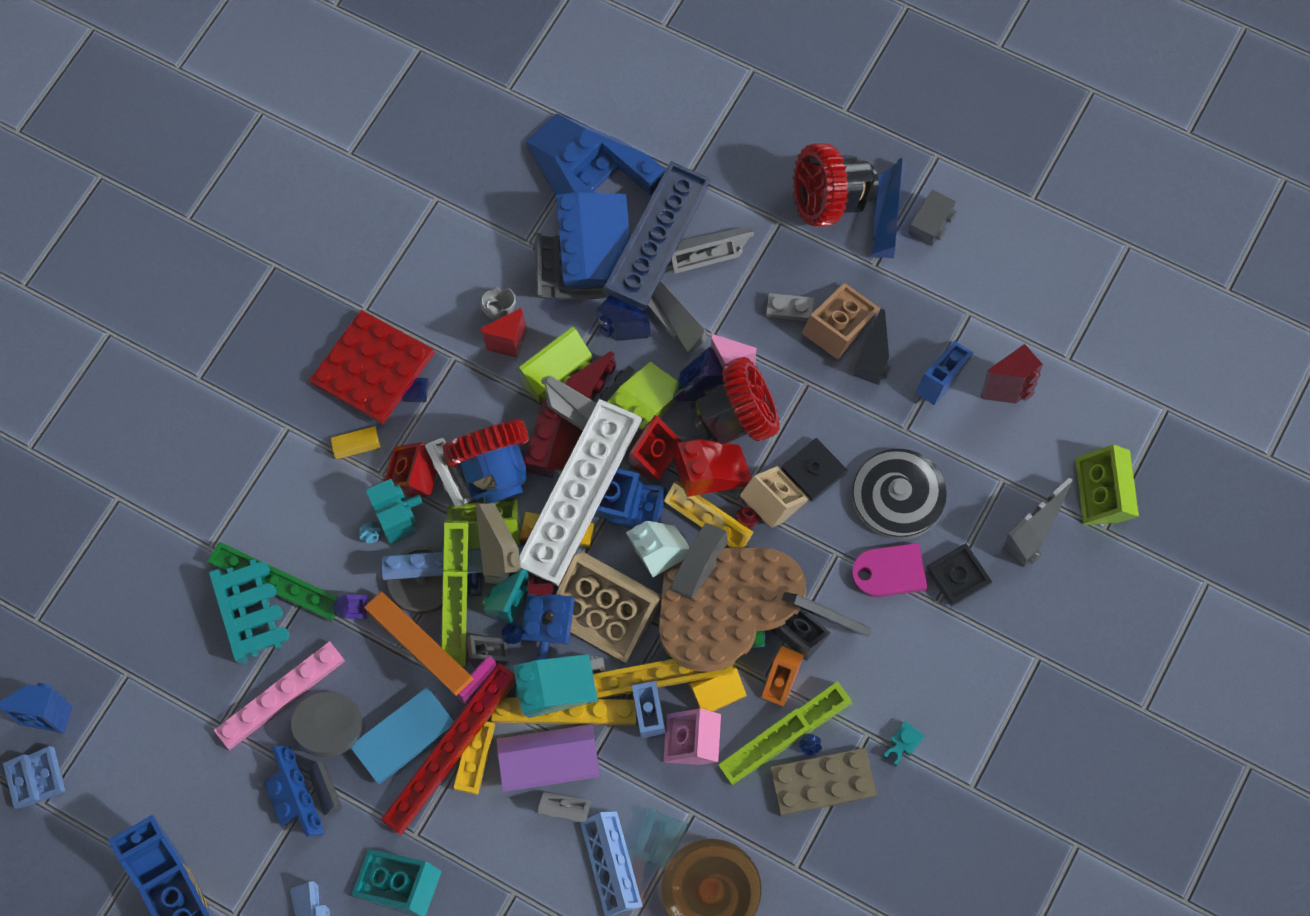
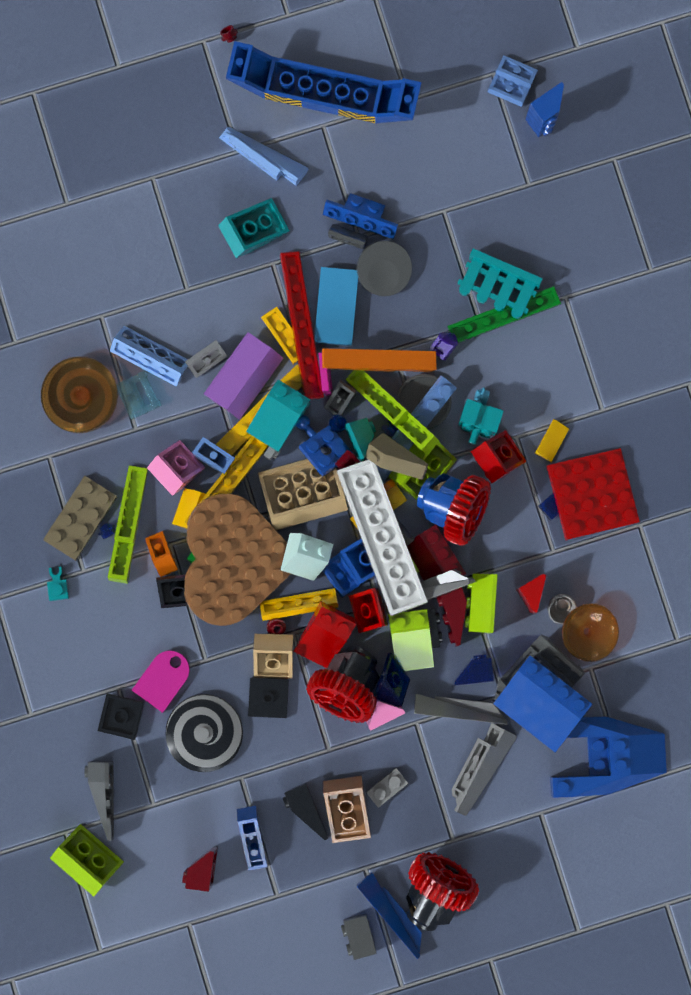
camera: 130 degrees right, 15 degrees up
(279, 695) = (430, 259): bright pink plate -> none
(451, 476) = (462, 471): white plate -> none
(496, 261) = (601, 636): none -> clear orange dish
(657, 236) = (509, 747): dark blue plate -> none
(699, 560) = (270, 566): dark grey slope -> none
(826, 613) = (167, 609): tile -> none

